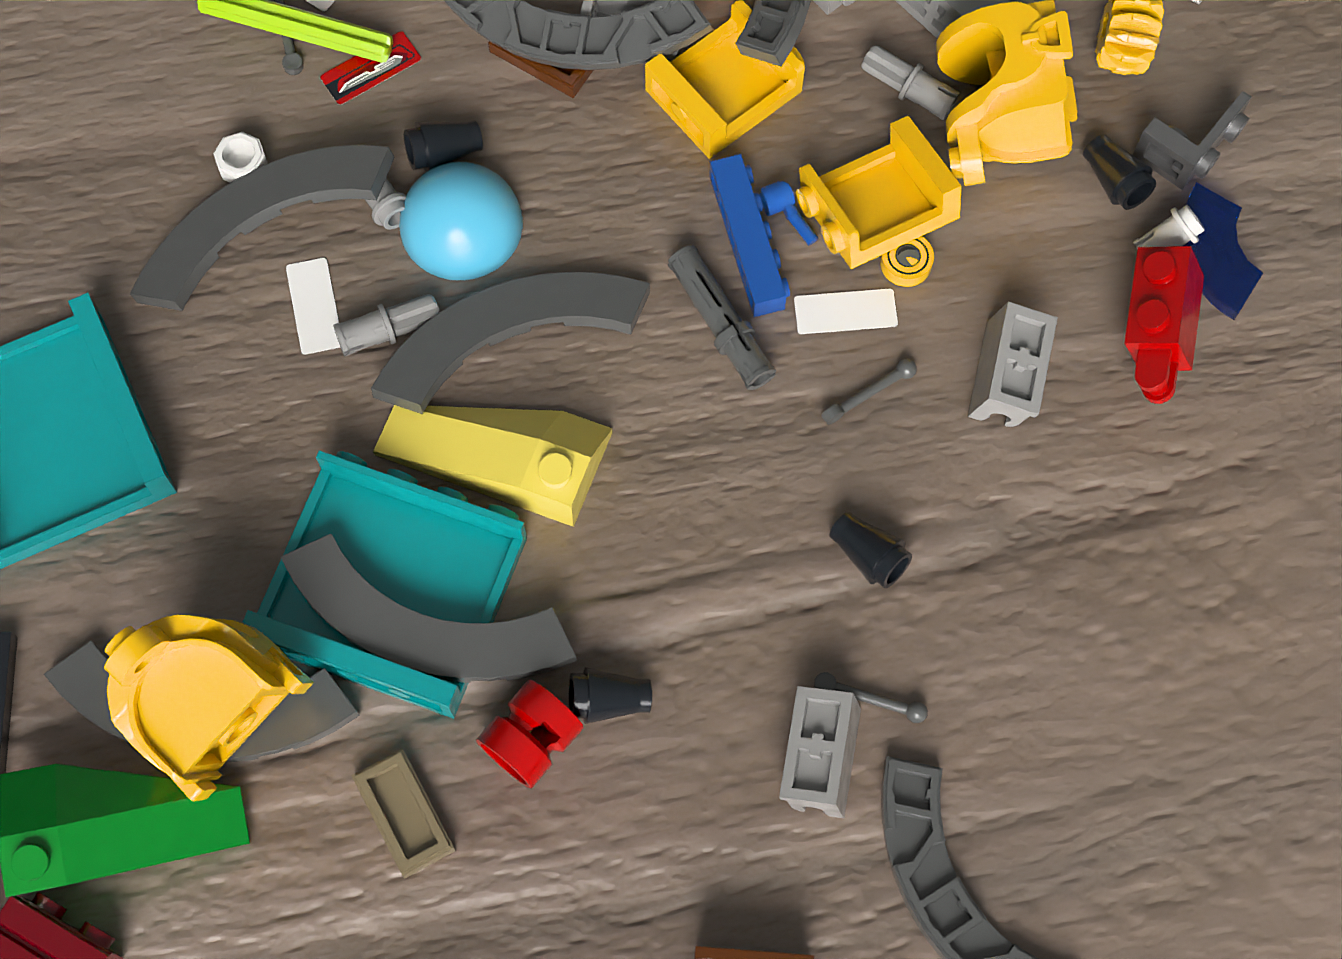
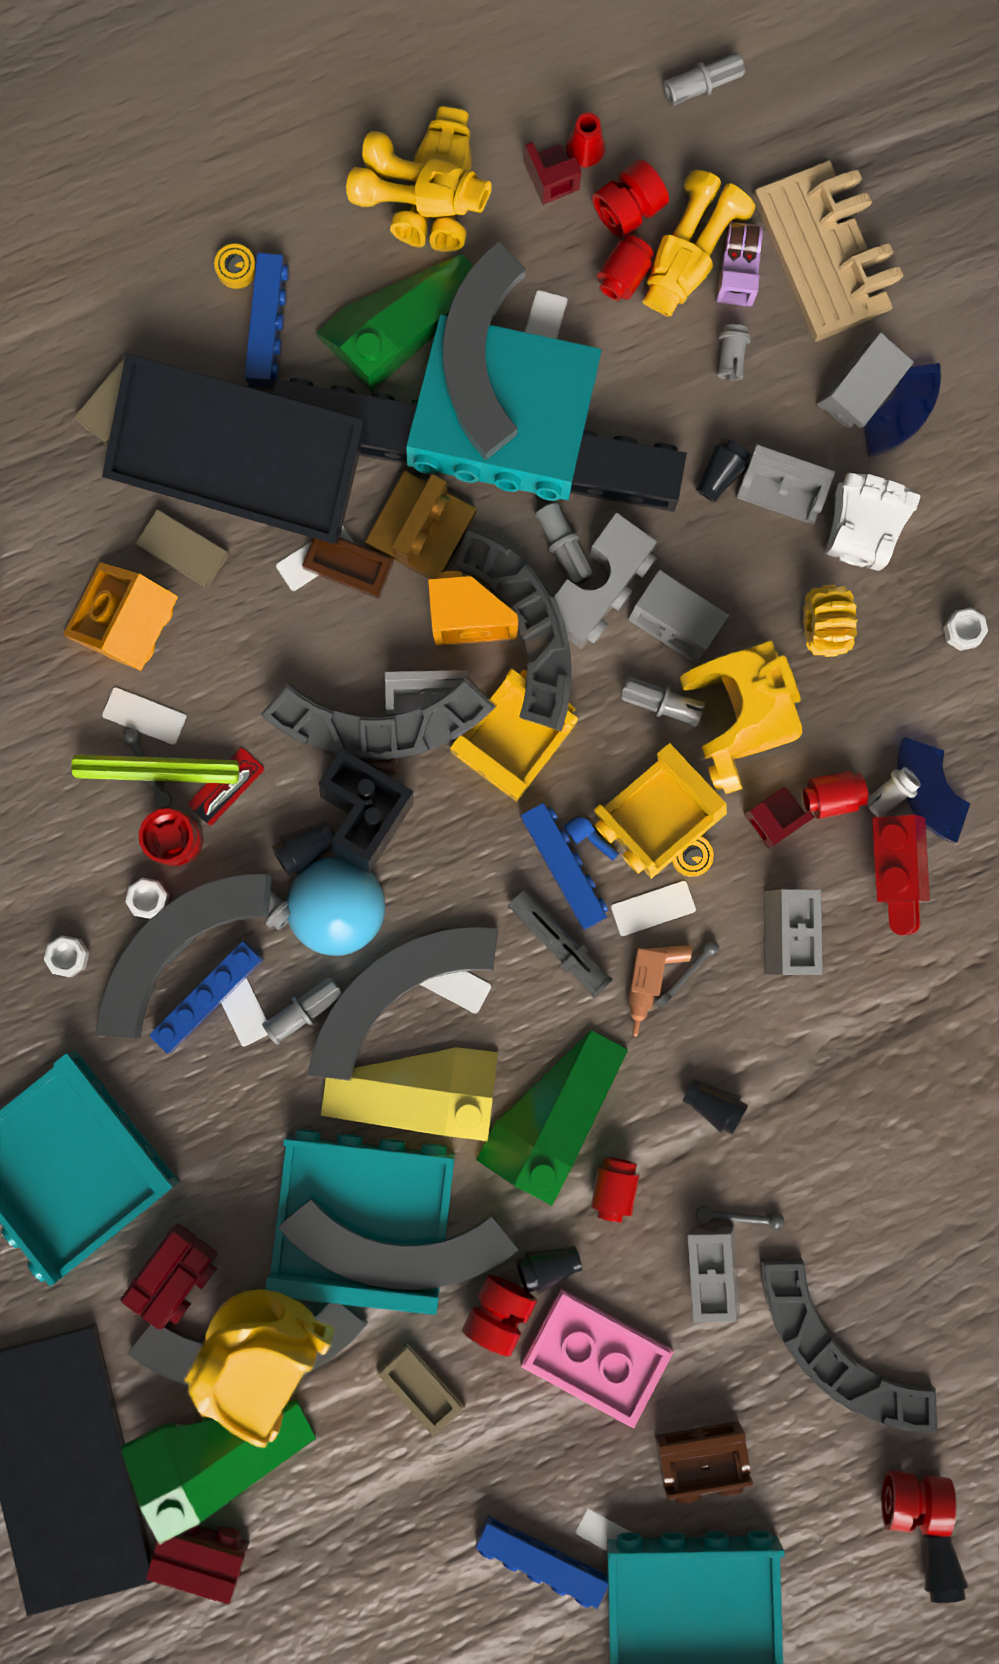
camera: 15 degrees left, 15 degrees up
(125, 200) = (66, 956): none -> white tile
(128, 588) = (169, 1277): none -> dark red brick
(276, 282) = (206, 997): none -> blue piece
(289, 93) = (170, 837): none -> red wheel
(530, 109) = (373, 805): none -> black brick
(583, 346) = (461, 989): none -> white sticker
(642, 829) = (597, 1357): none -> bright pink tile
(651, 529) = (547, 1127): none -> green wedge
(718, 617) = (615, 1189): none -> red brick
(820, 381) = (648, 976): none -> nougat piece
(1020, 238) = (777, 817): none -> dark red panel
(1098, 224) = (835, 794): none -> red brick
(1119, 172) = (843, 743): black cone -> none
(1179, 159) = (879, 713): flat silver bracket -> none
(1292, 83) = (965, 629): none -> white tile

